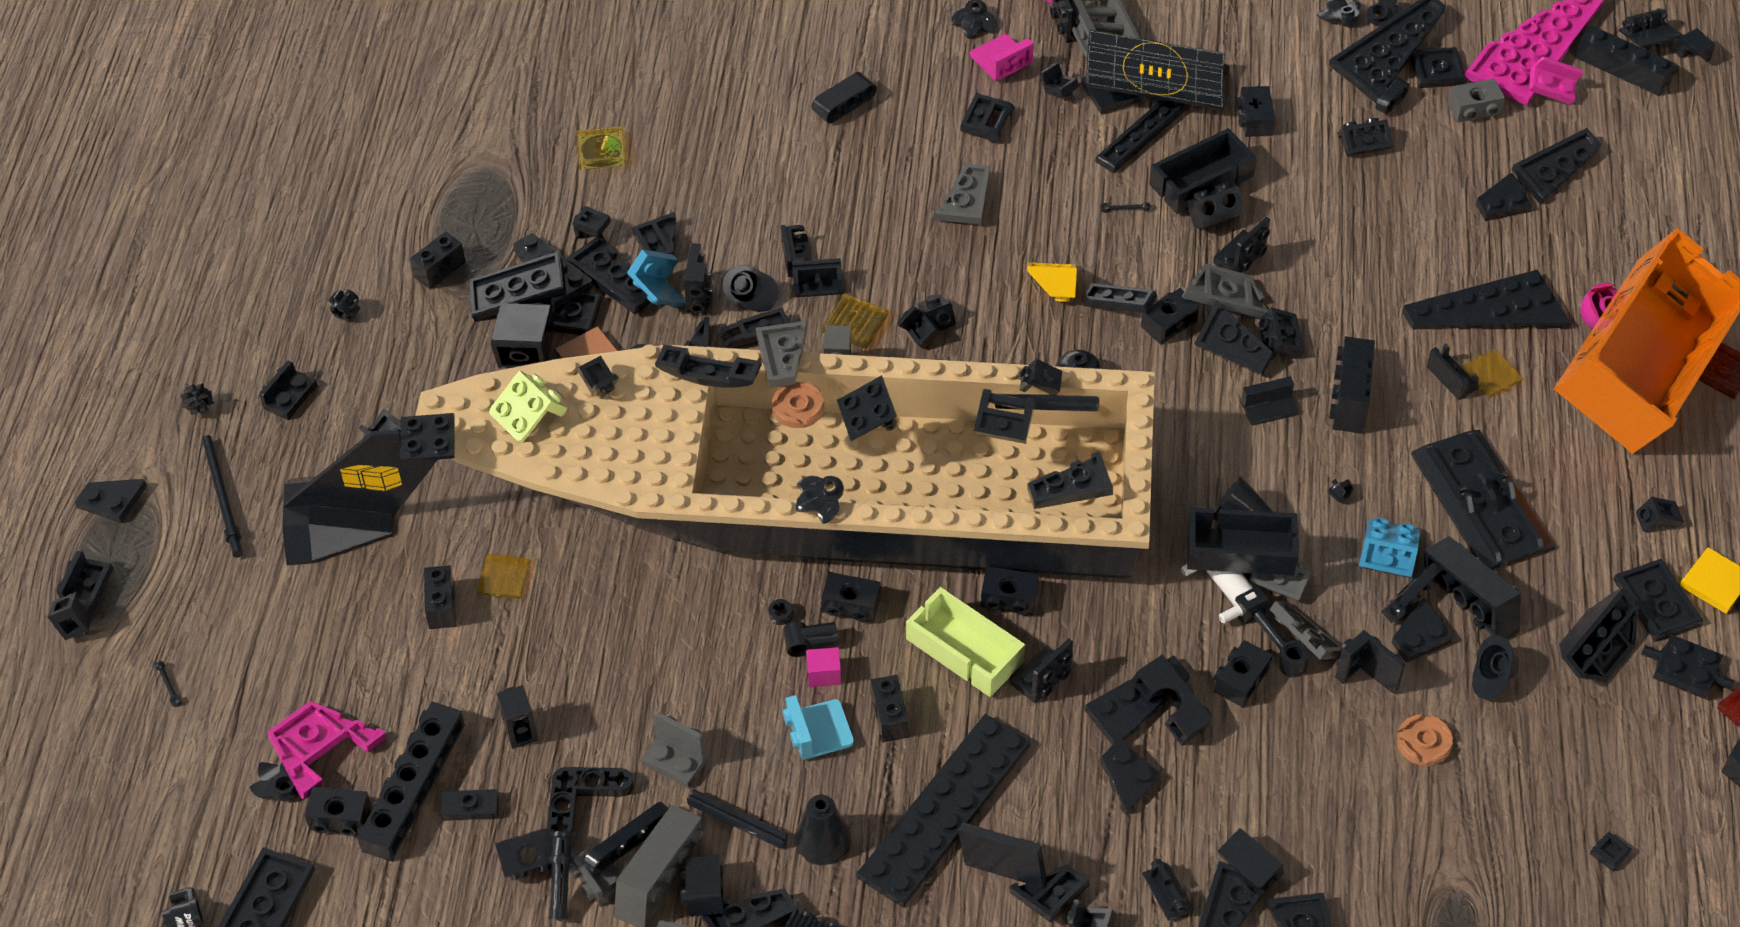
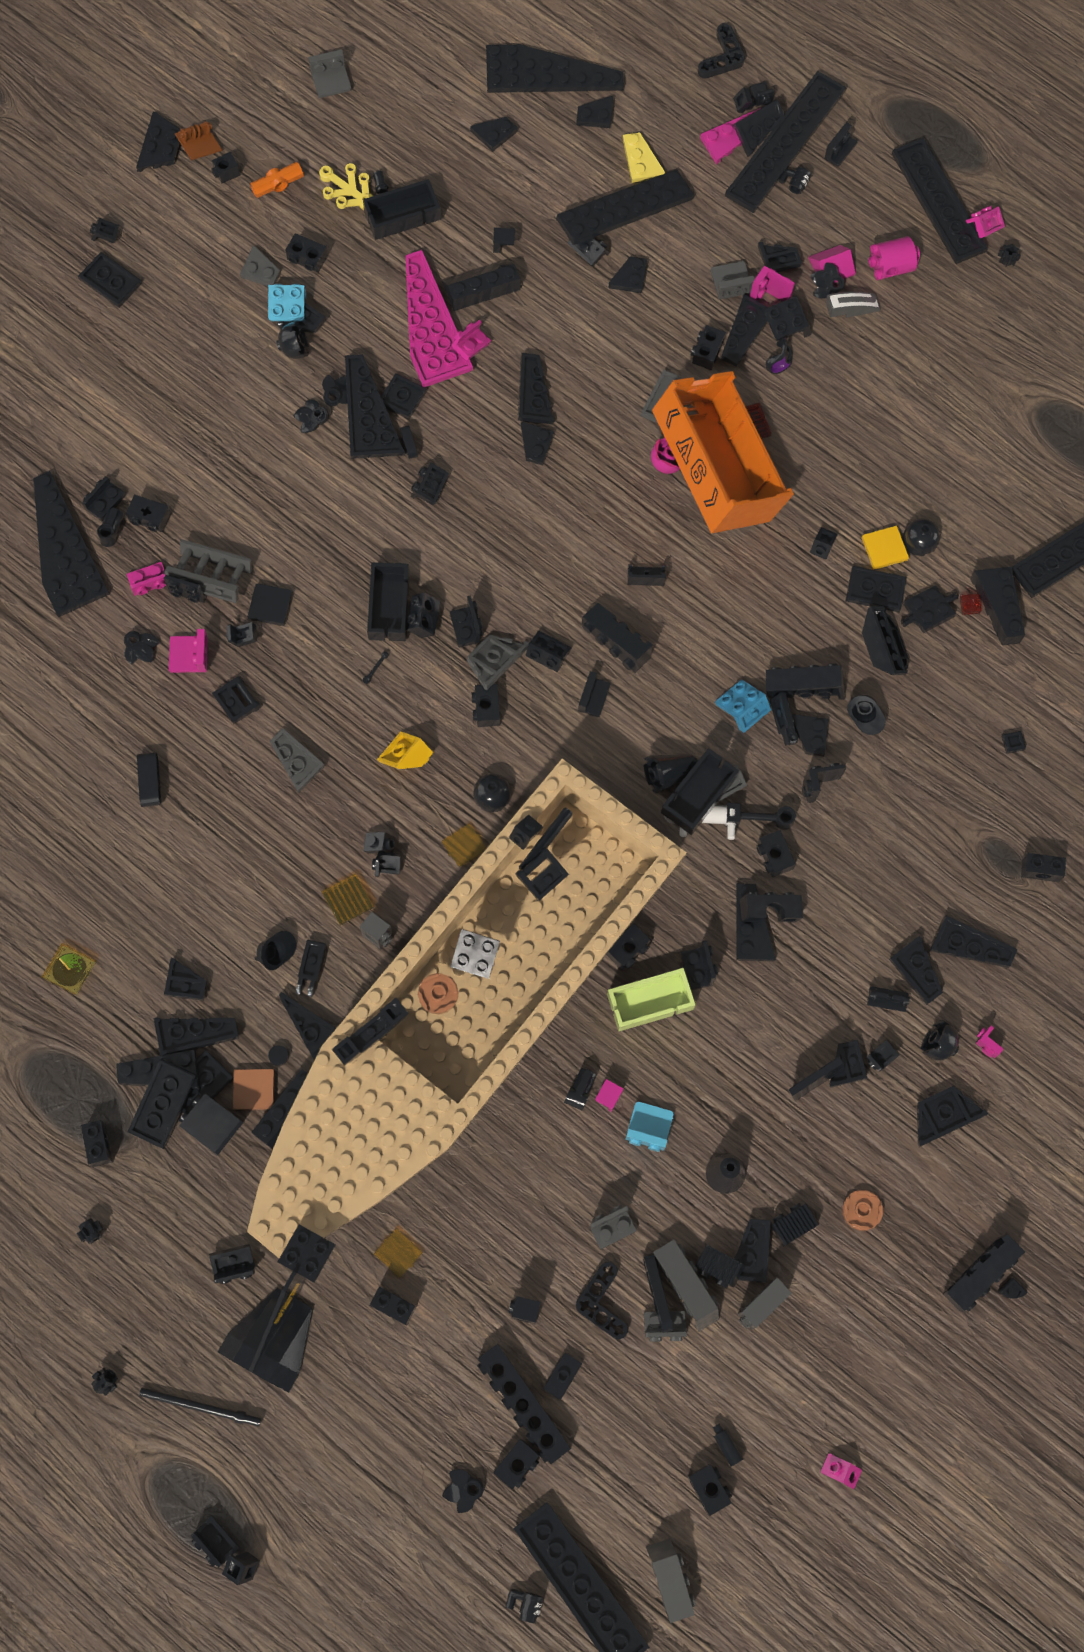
camera: 60 degrees left, 20 degrees up
(110, 498) = (147, 1486): black wing -> none
(175, 700) = (352, 1526): black hinge -> none
(286, 391) = (139, 1312): black bracket -> none
(312, 733) = (445, 1452): dark pink wing -> none
(510, 849) = (619, 1368): black brick -> none
(525, 404) = (318, 1169): yellowish green bracket -> none
(560, 858) = (652, 1345): black pin -> none
(590, 222) = (140, 1019): black bracket -> none
(598, 376) = (328, 1108): black bracket -> none
(650, 275) = (230, 1010): dark azure bracket -> none
(697, 281) = (252, 982): black plate -> none
(737, 818) = (680, 1216): black axle -> none
(780, 604) = (545, 1100): black bush -> none
(781, 351) = (389, 977): dark grey wing -> none
(794, 246) = (262, 899): black hinge -> none
(817, 277) = (297, 900): black hinge -> none
(817, 498) = (522, 1030): black plate -> none
(841, 587) = (574, 1035): black brick -> none
(889, 708) = (666, 1075): black brick -> none
(935, 816) = (752, 1088): black plate -> none
(1077, 483) = (620, 868): black wing -> none
(1119, 298) = (453, 726): black tile -> none
(1128, 774) = (800, 967): black wing -> none
(1142, 132) = (315, 588): black tile -> none
(1155, 70) = (285, 570): black hinge -> none
(1232, 341) = (535, 683): black wing -> none
(1250, 859) = (901, 940): black panel -> none
(1256, 111) = (356, 524): black brick -> none
(1306, 631) = (775, 797): dark grey wing -> none
(1341, 491) = (685, 703): black piece -> none
(1424, 740) = (882, 785): nougat tile -> none
(1475, 100) = (450, 387): dark grey brick -> none
(1481, 499) = (744, 629): black hinge -> none
(1493, 305) = (614, 507): black wing -> none
(1493, 372) = (659, 552): clear yellow piece -> none
(1649, 28) = (471, 253): black hinge -> none

